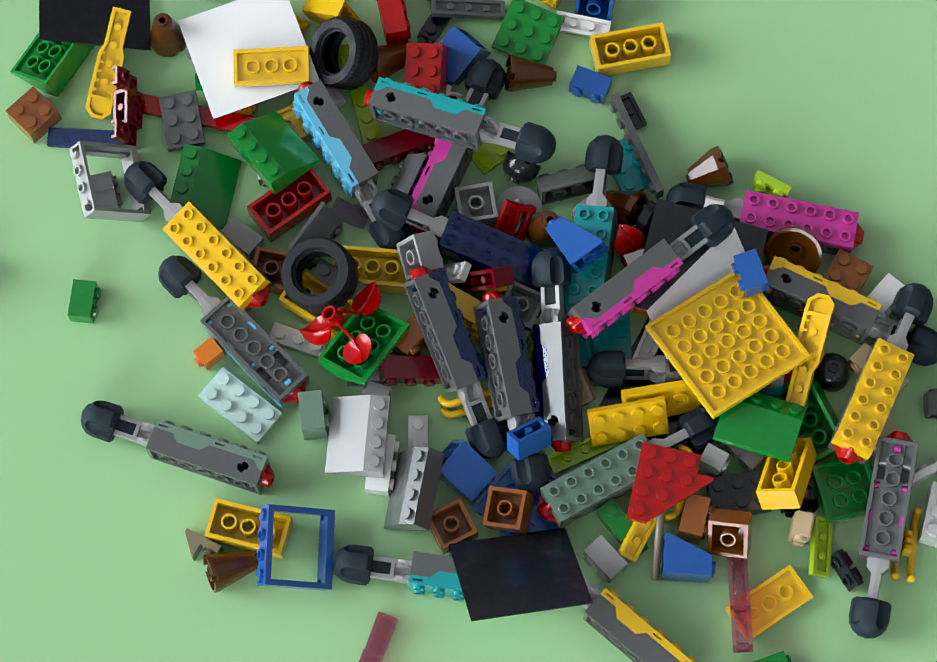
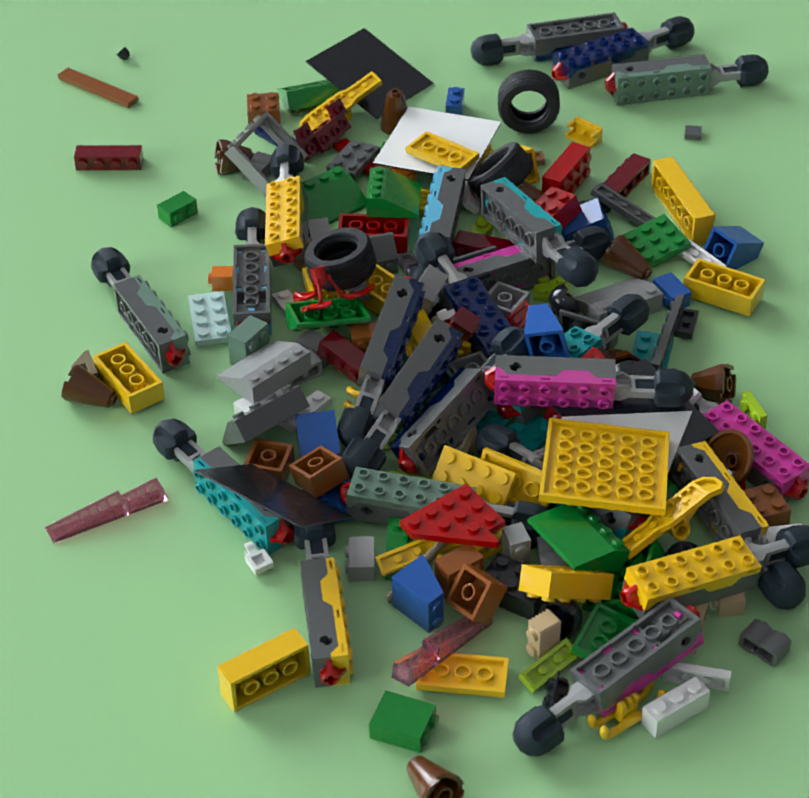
camera: 40 degrees right, 30 degrees down
(66, 204) = (224, 164): none -> reddish brown cone
(325, 550) = (135, 439): blue window -> none
(529, 438) = (379, 426): blue brick -> none
(531, 622) = (257, 560): none -> white plate
(565, 116) = (595, 303): none -> light grey slope
(750, 272) = (669, 432): blue brick -> none

